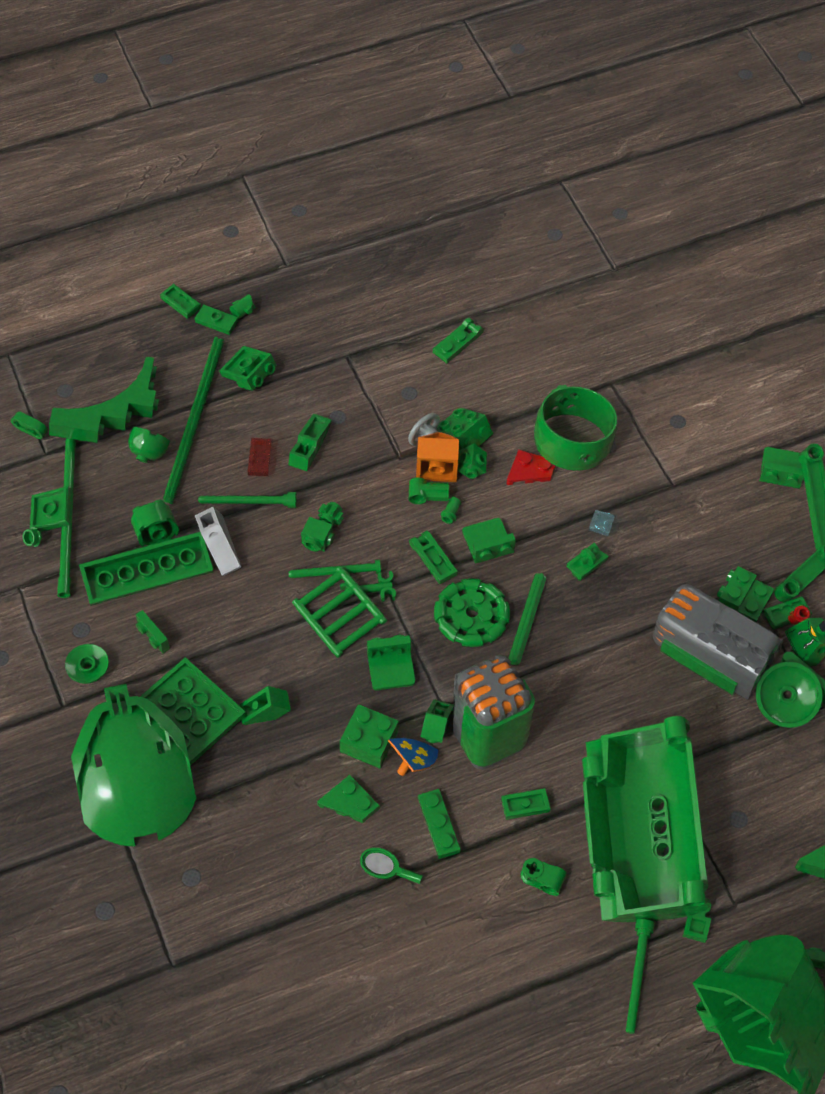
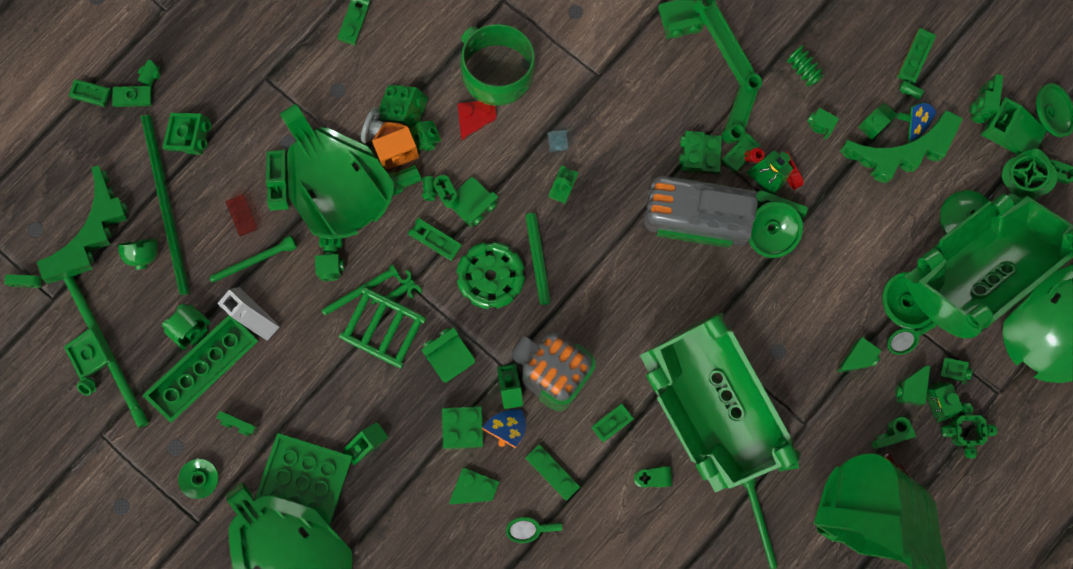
camera: 30 degrees left, 20 degrees up
(361, 449) = (323, 164): none -> green windscreen
(470, 518) = (448, 190): none -> green beam

